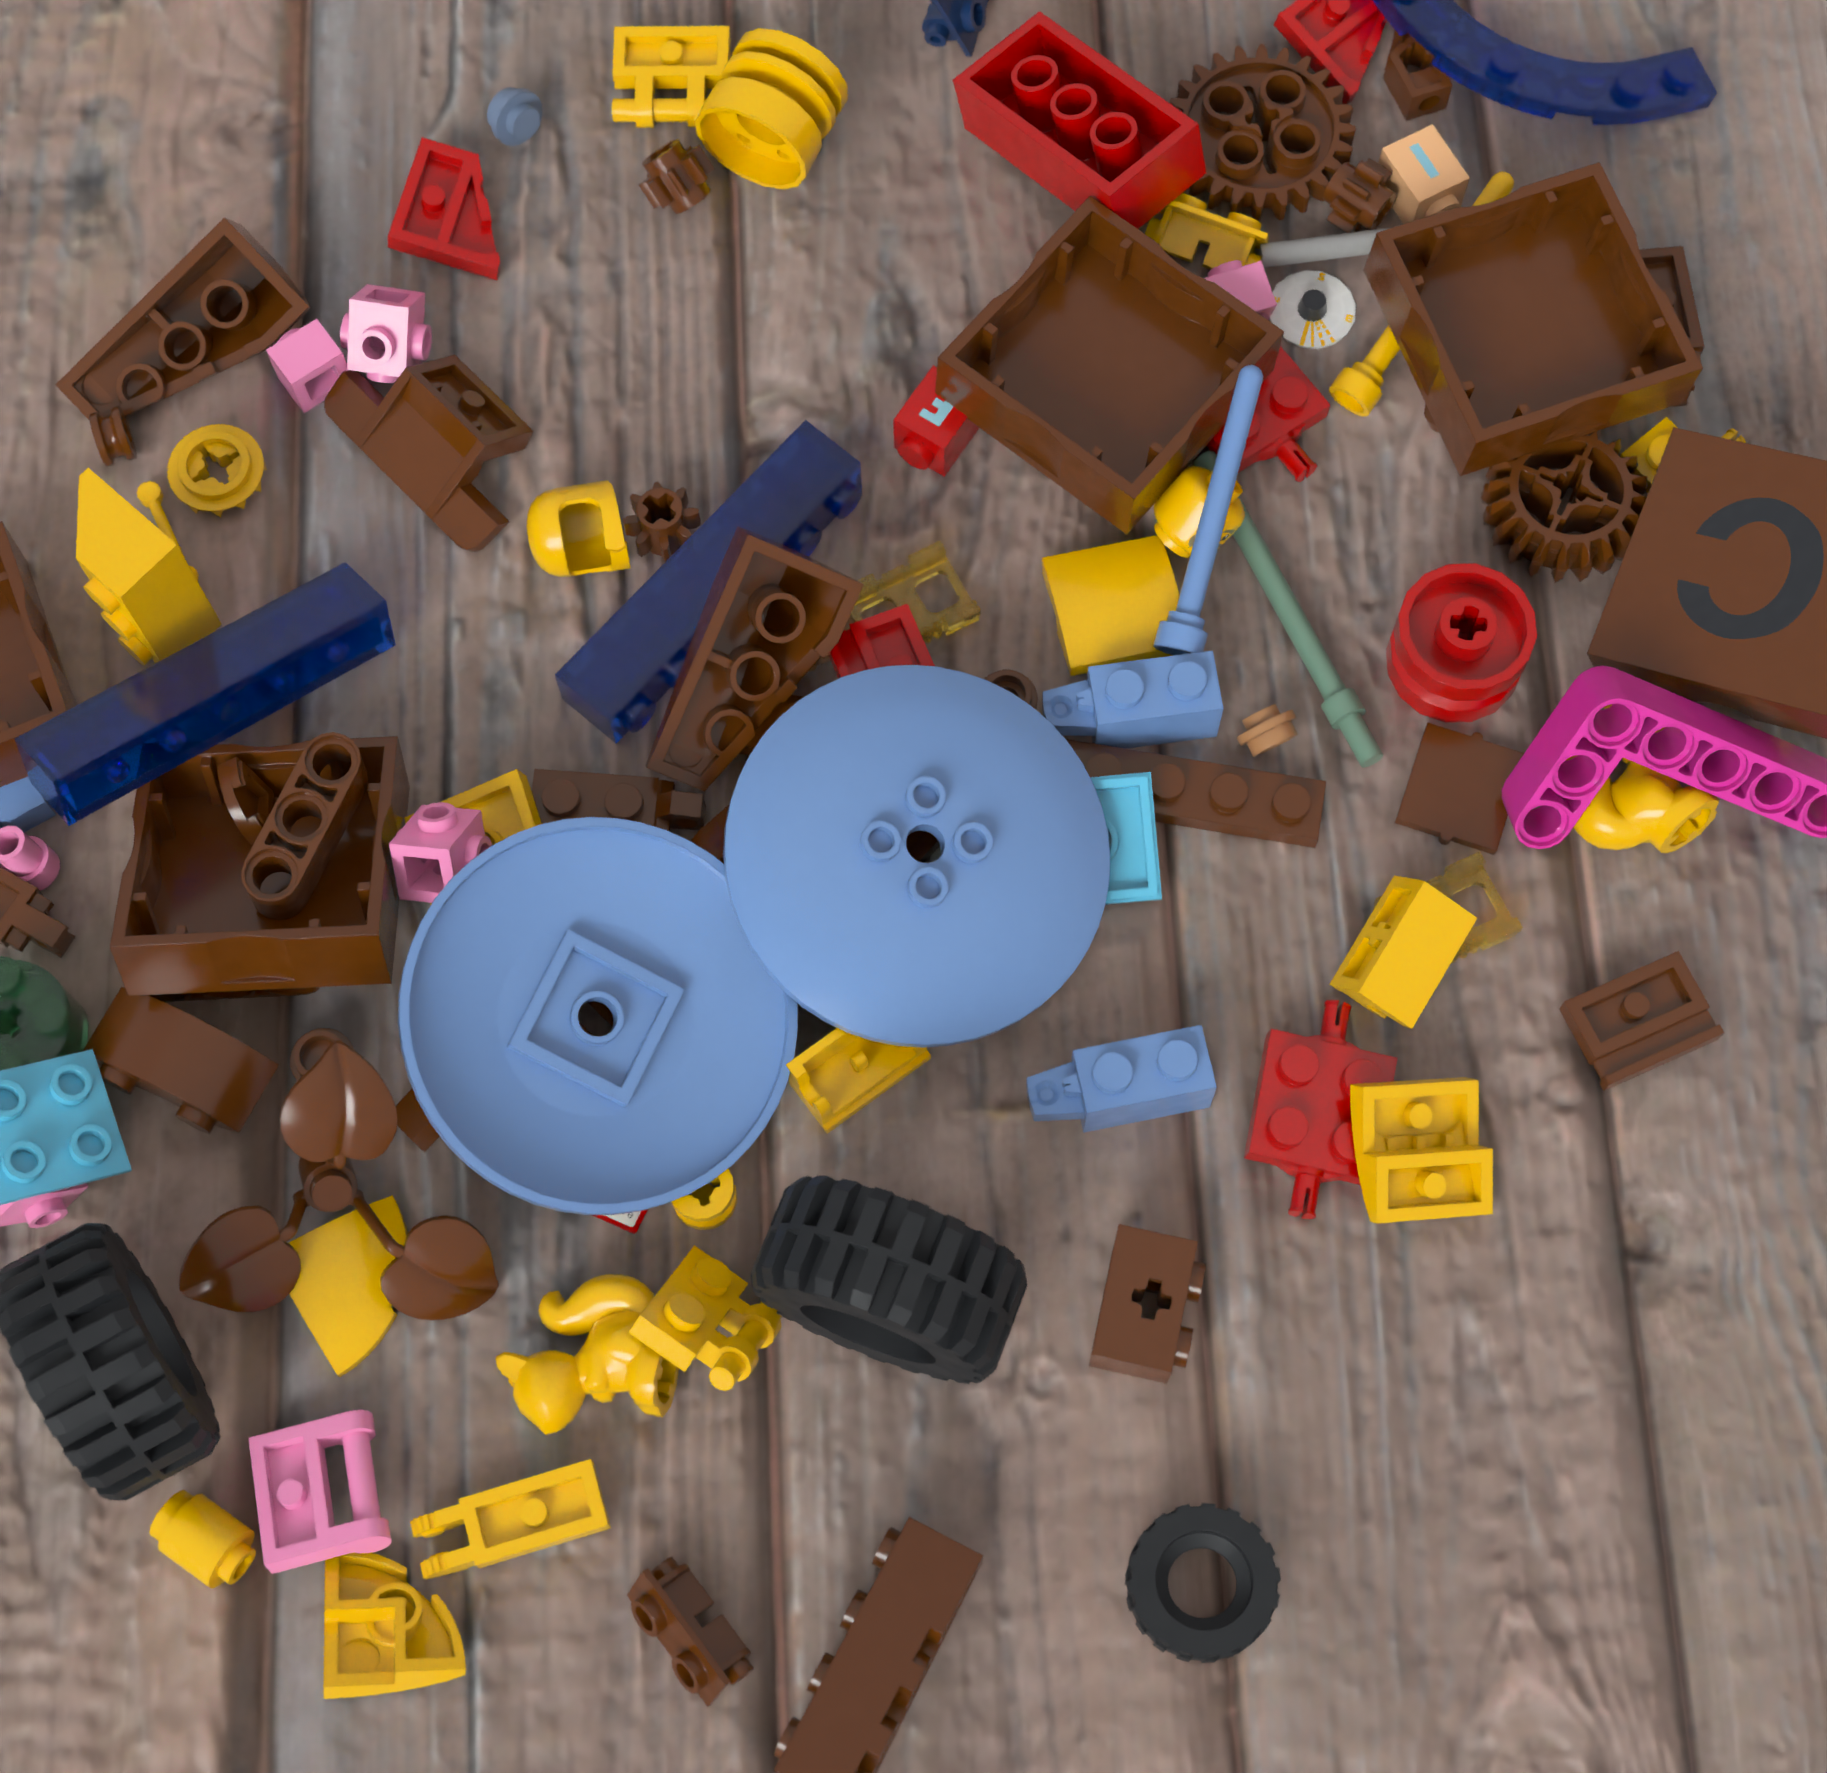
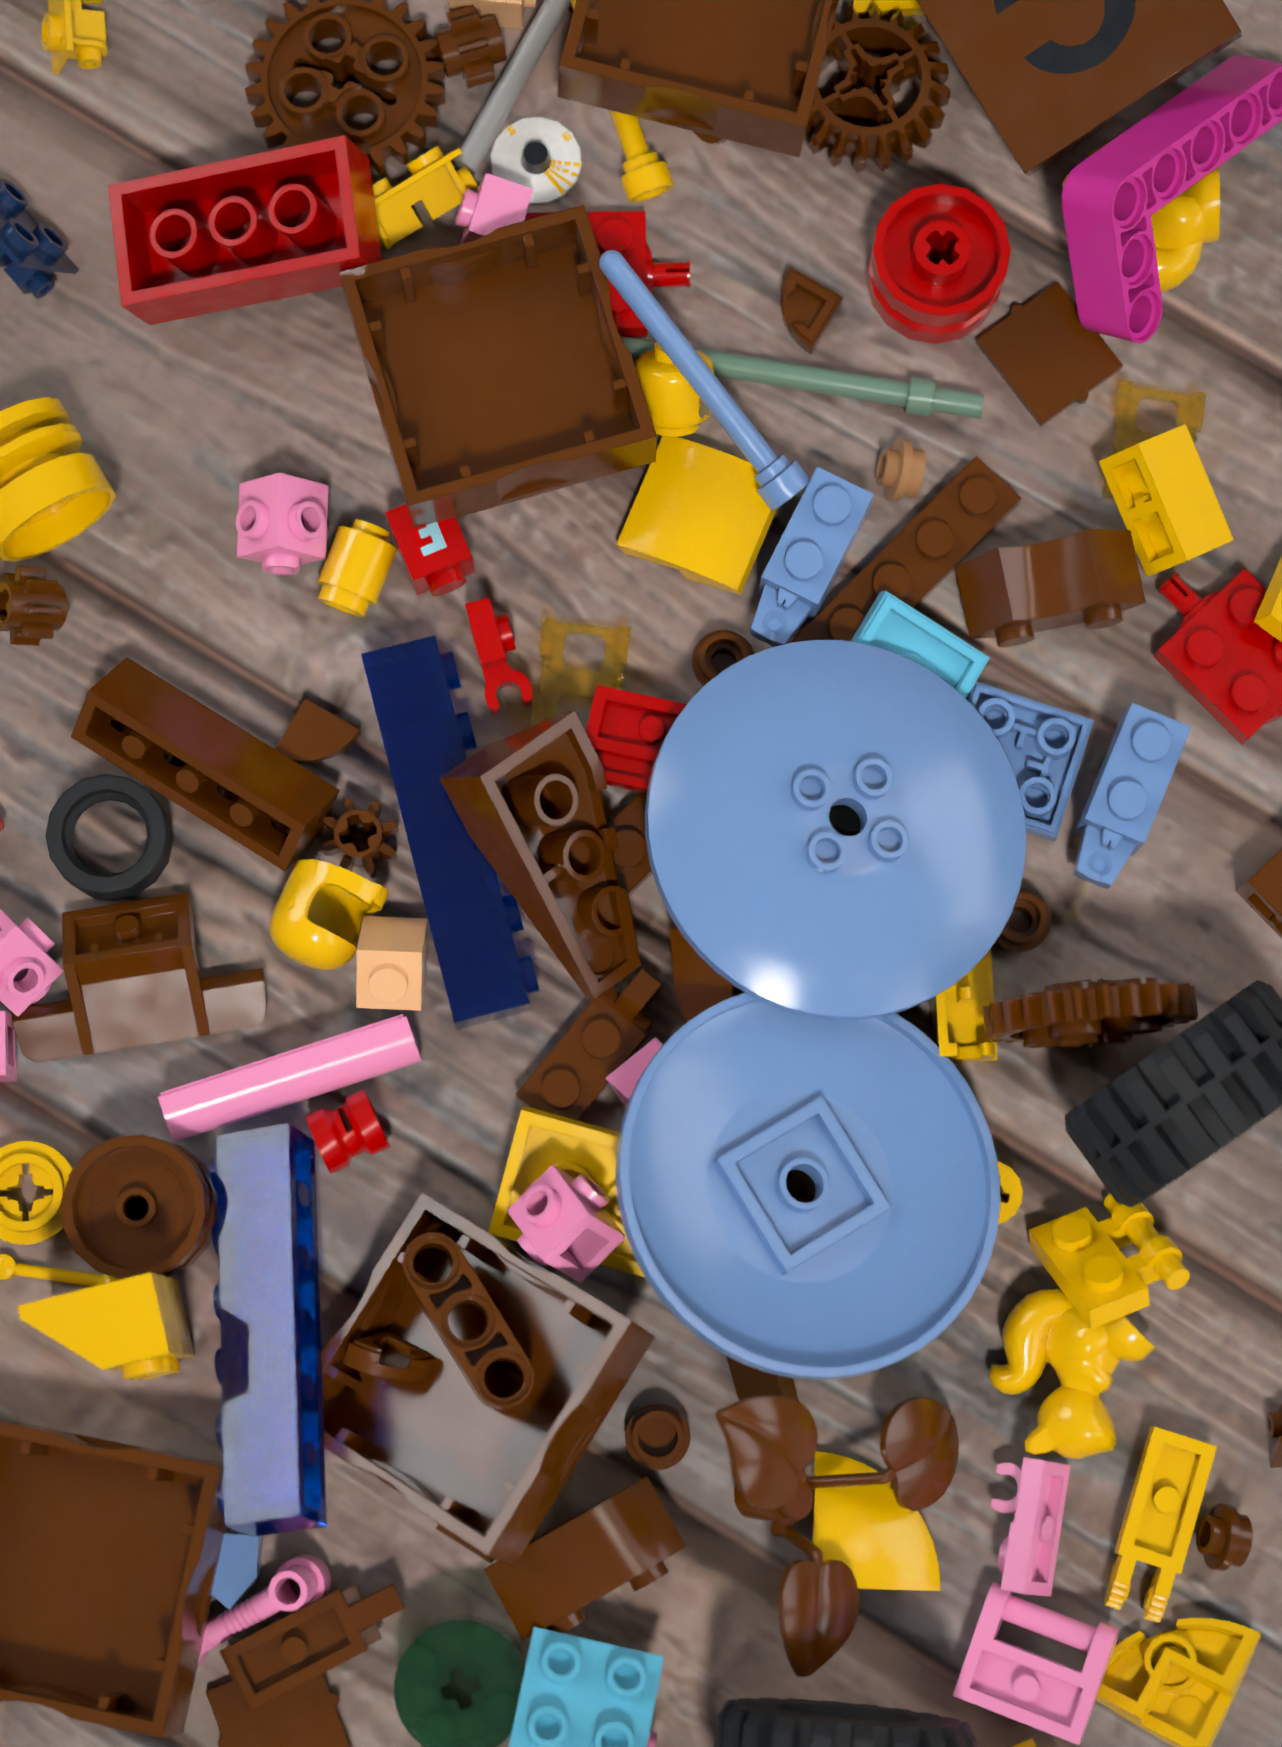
camera: 60 degrees left, 10 degrees up
(249, 540) = (101, 1215): none -> reddish brown wheel
(417, 662) = (335, 1136): none -> red wheel
(435, 593) = (289, 1077): none -> bright pink brick
(438, 1413) = (1031, 1549): none -> bright pink plate
(526, 309) = (83, 796): none -> black tyre
(532, 1585) = (1224, 1537): none -> reddish brown plate
(571, 601) = (391, 963): none -> light nougat brick
(639, 370) = (204, 763): none -> reddish brown brick
(723, 442) = (316, 735): none -> reddish brown tile
(872, 305) = (282, 522): none -> bright pink brick
(877, 382) = (356, 568): none -> yellow brick
(888, 515) = (492, 639): none -> red plate
(894, 1143) = (1090, 1012): none -> reddish brown gear
(958, 1091) = (1039, 926): none -> reddish brown plate
(1110, 992) = (1042, 750): none -> medium blue tile
(1259, 907) = (1050, 586): none -> reddish brown brick
(1349, 579) = (807, 309): none -> reddish brown tile

